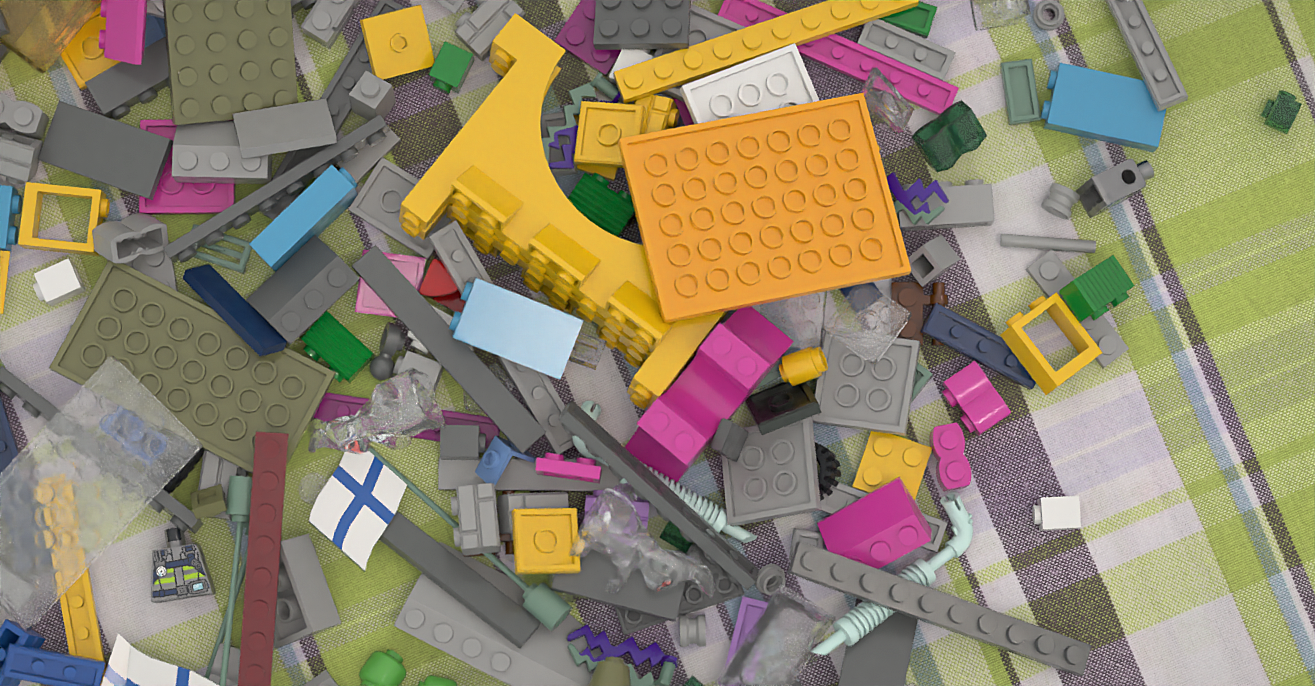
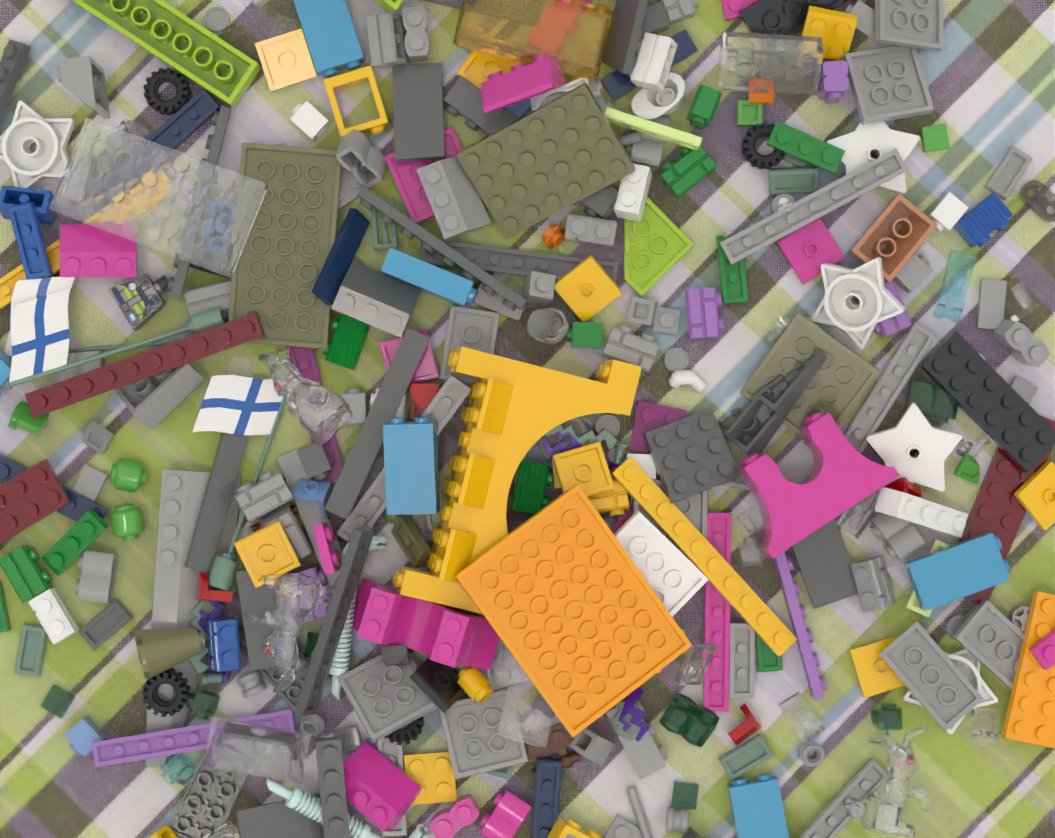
camera: 70 degrees right, 5 degrees up
(102, 597) = (95, 253): none -> dark pink slope
(208, 502) = (194, 299): olive plate -> none
(284, 128) = (486, 235): light grey tile -> none
(319, 56) = (553, 236): none -> orange plate
(391, 340) = (369, 378): dark grey plate -> none
(420, 106) = (547, 325): none -> light grey hair
(562, 636) = (204, 594): none -> red tile
(563, 86) = (609, 423): none -> light grey piece
(597, 372) = (409, 538): none -> olive plate
(631, 640) = (223, 644): none -> blue brick
(987, 75) = (745, 729): none -> red tile
(1035, 180) = (684, 795): none -> clear green tile

